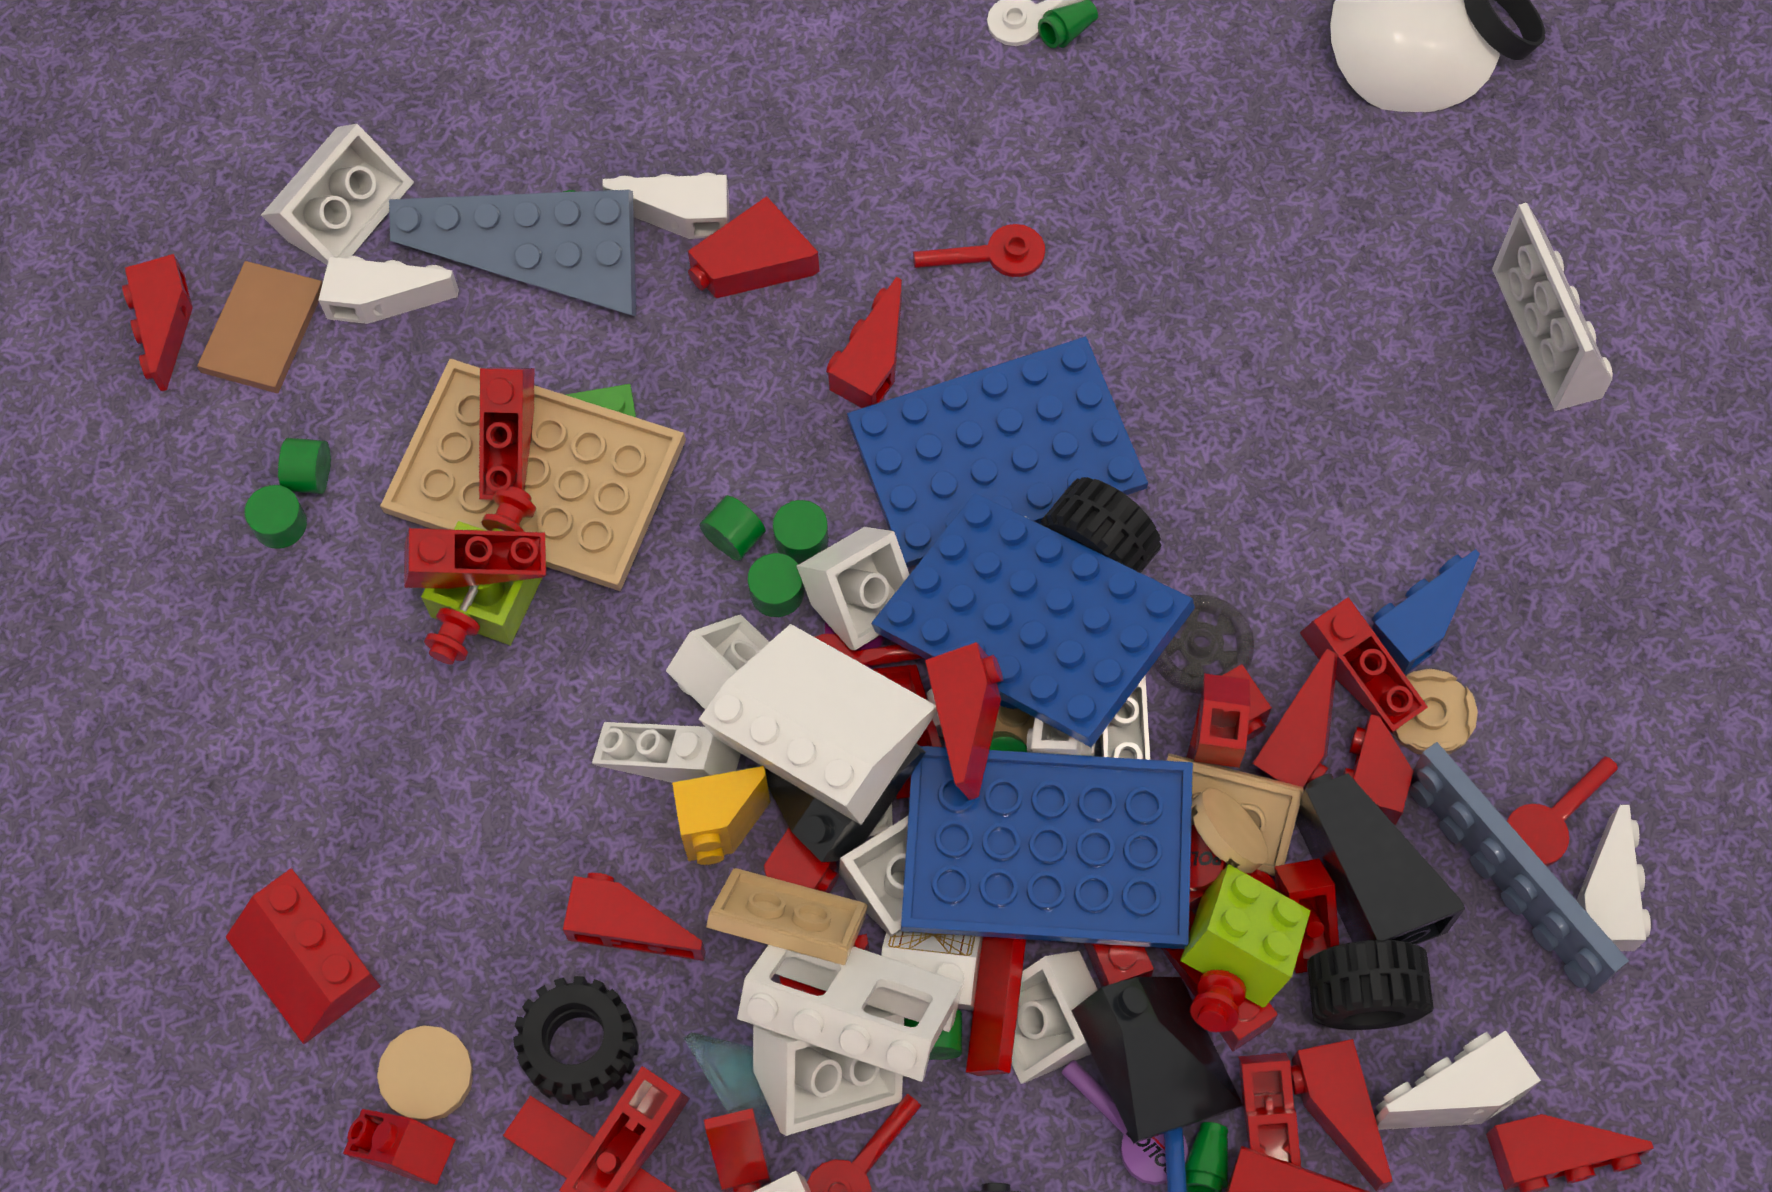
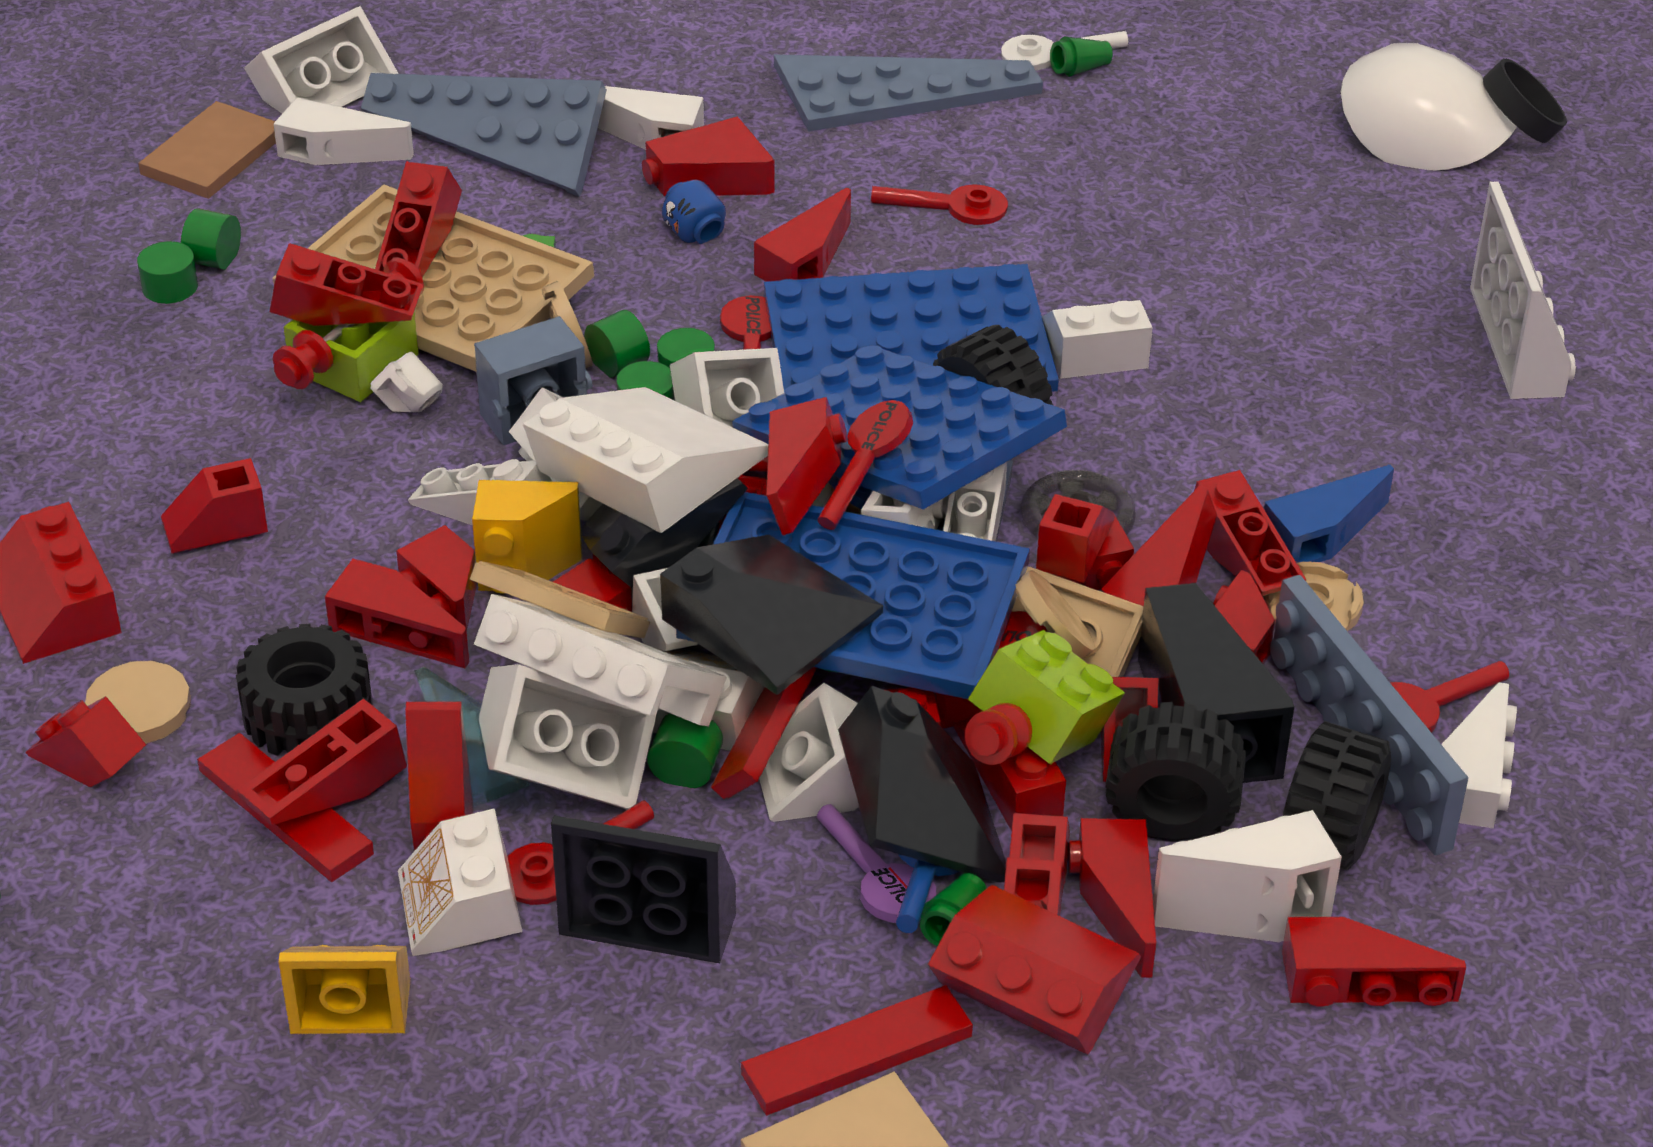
camera: 10 degrees right, 25 degrees down
(162, 311) = (120, 121): red slope -> none
(423, 830) = (216, 507): none -> red slope
(551, 623) = (407, 385): none -> white piece
(657, 864) = (442, 569): none -> red slope
(670, 605) = (521, 363): none -> sand blue brick
(683, 524) = (562, 308): none -> tan tile
(755, 328) = (694, 212): none -> blue head
(842, 463) = (746, 320): none -> red piece
(878, 105) = (867, 89): none -> sand blue wing
(982, 897) = (763, 607): none -> black slope
(1031, 669) = (870, 436): none -> red piece
(1171, 417) = (1099, 338): none -> white slope
(1512, 981) = (1344, 784): none -> black tyre

